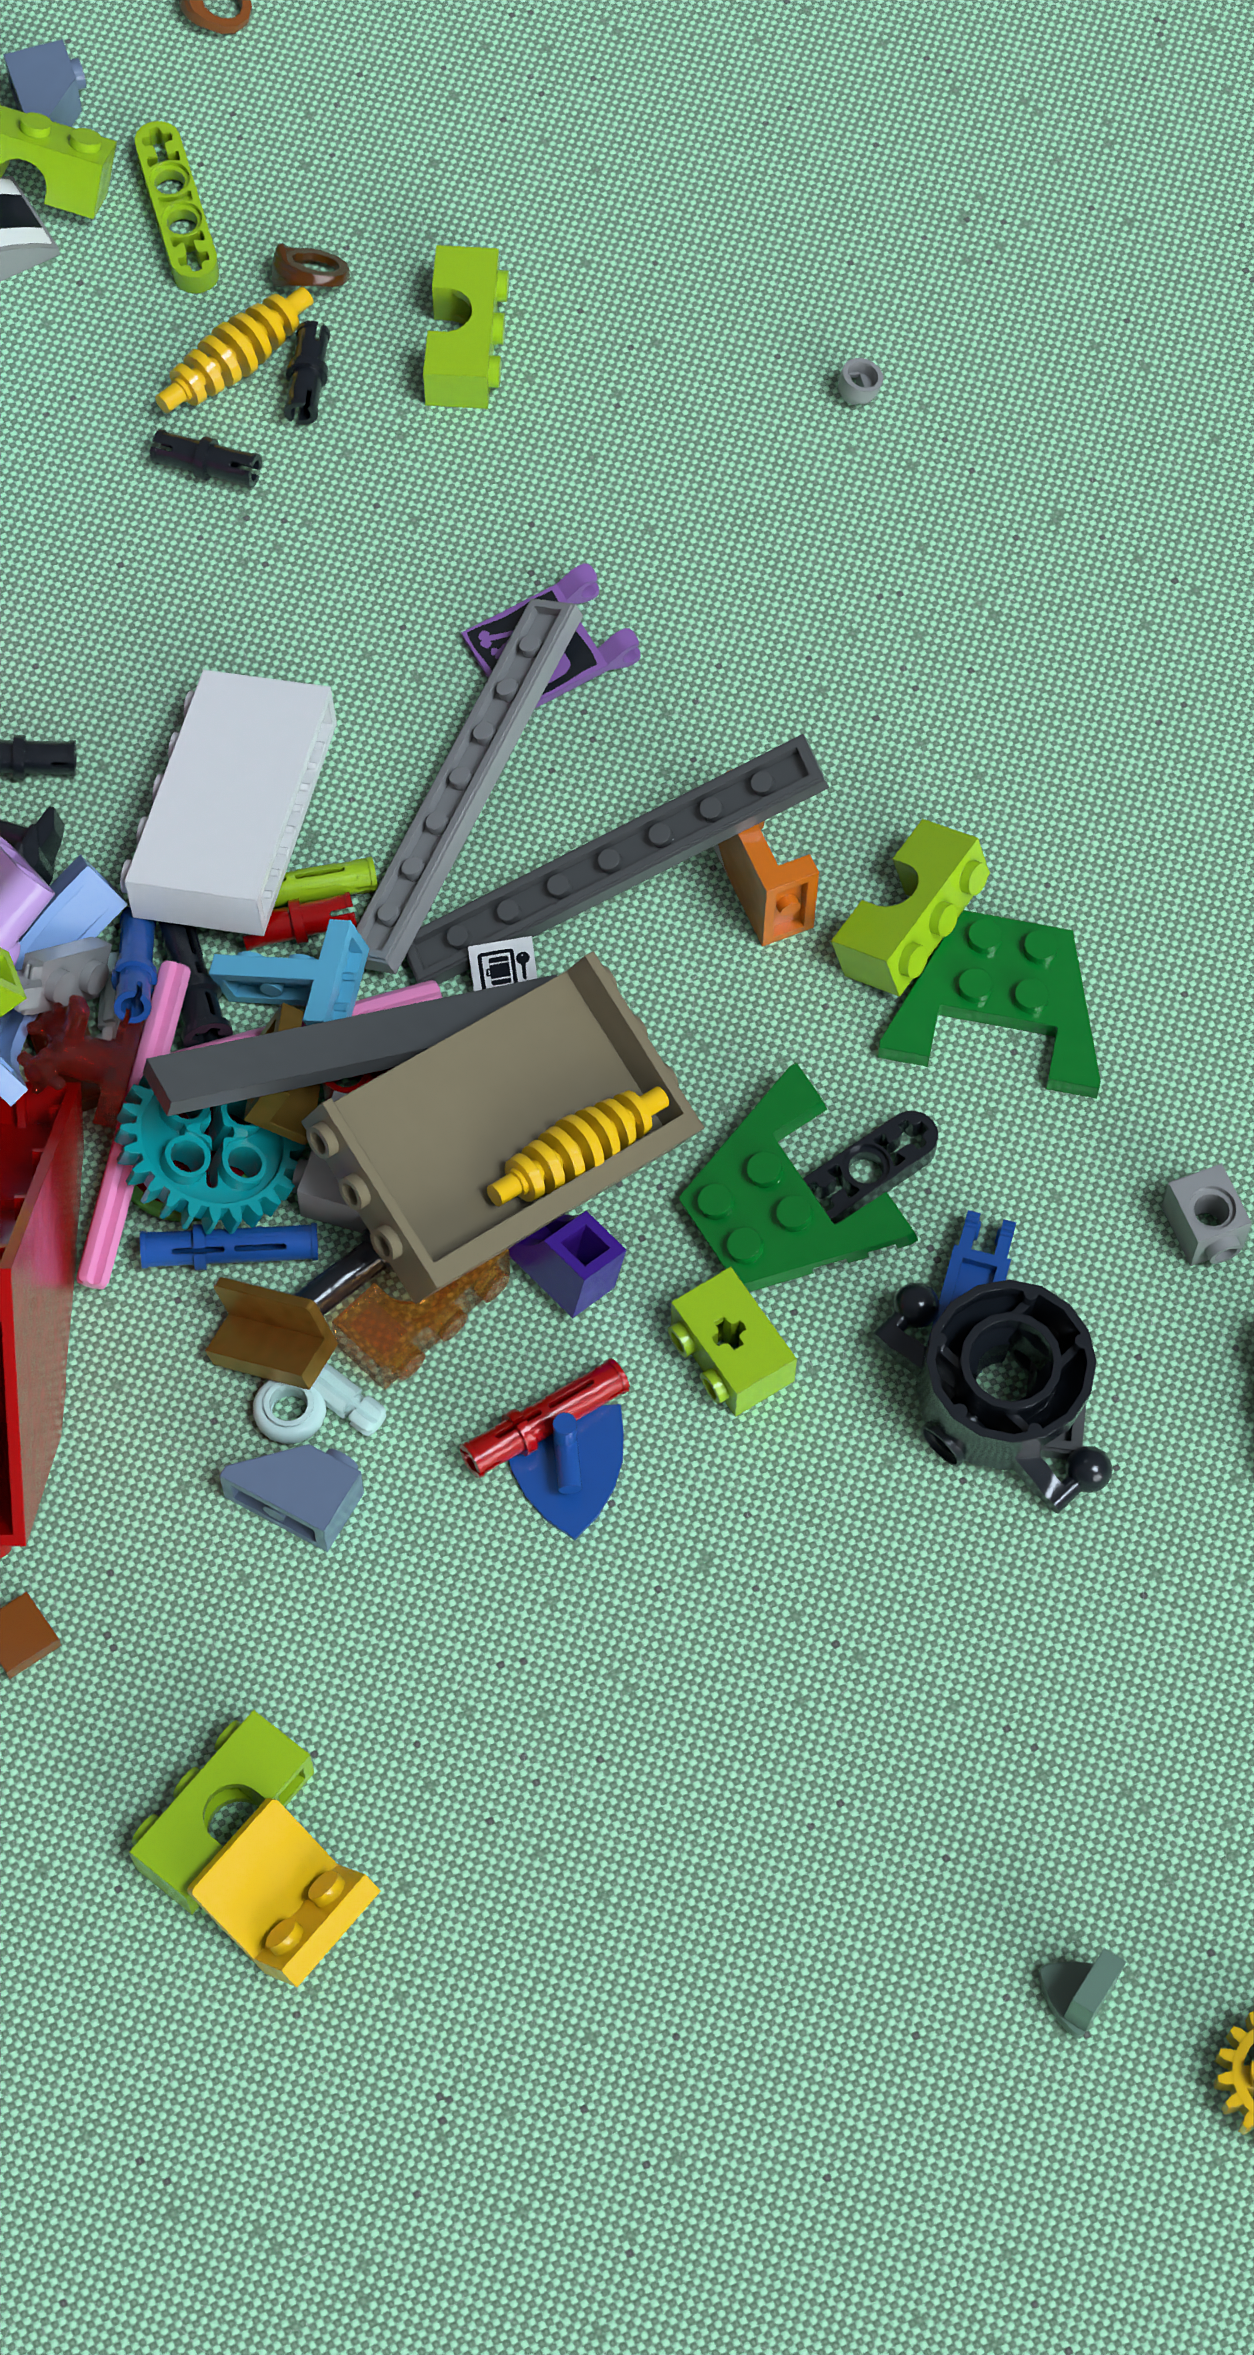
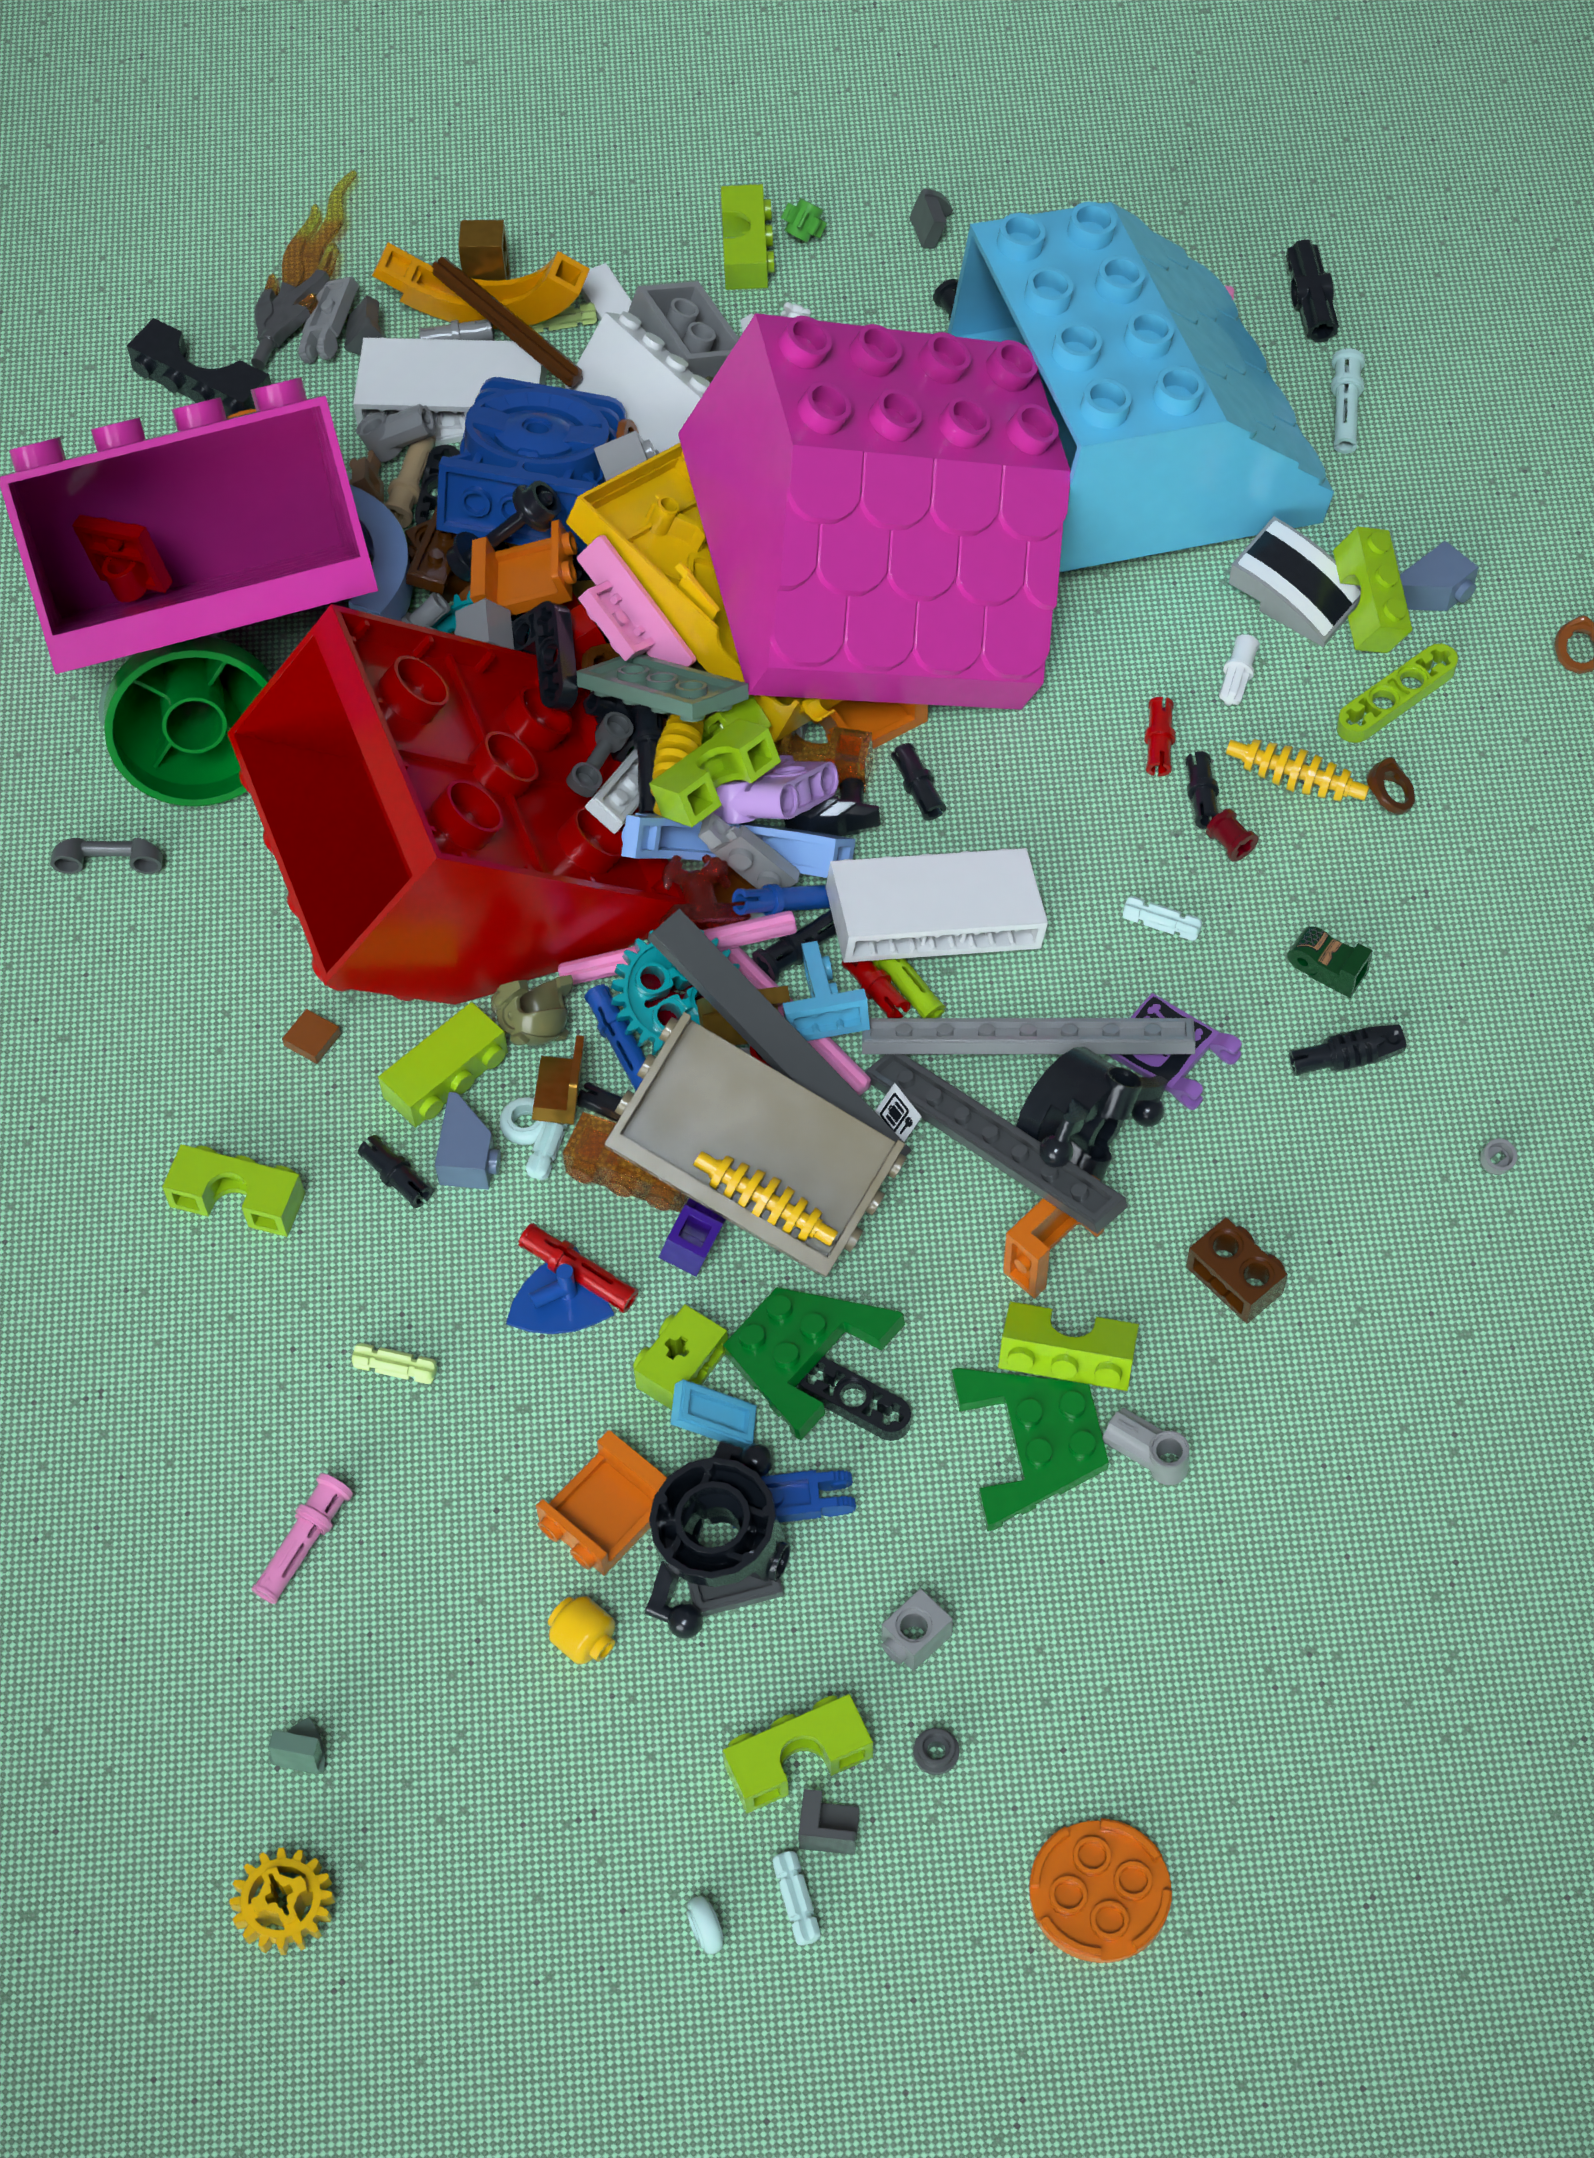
camera: 70 degrees right, 5 degrees down
(50, 349) = (1239, 669): none -> white axle
(102, 470) = (1160, 736): none -> red pin
(140, 1331) = (533, 1015): none -> olive helmet
(161, 1475) = (443, 1064): none -> lime brick
(280, 1894) = (188, 1238): yellow bracket -> none
(288, 1595) = (395, 1171): none -> black pin
(289, 454) = (1231, 835): none -> dark red bush
(307, 372) = (1305, 819): black pin -> none
(363, 578) = (1162, 918): none -> light aqua axle
(461, 361) = (1366, 907): lime arch -> none
(518, 429) = (1330, 960): none -> dark green leg
(577, 1694) = (394, 1363): none -> yellowish green axle
(625, 747) = (1082, 1107): none -> black piece
(648, 464) = (1350, 1050): none -> black hinge
(768, 1871) = (312, 1520): none -> bright pink pin
(832, 1329) = (713, 1414): none -> medium azure tile
(890, 706) = (1228, 1275): none -> reddish brown brick
(893, 1504) = (603, 1505): none -> orange panel
(1055, 1592) = (581, 1630): none -> yellow head
(1070, 880) = (1145, 1445): none -> light grey piece

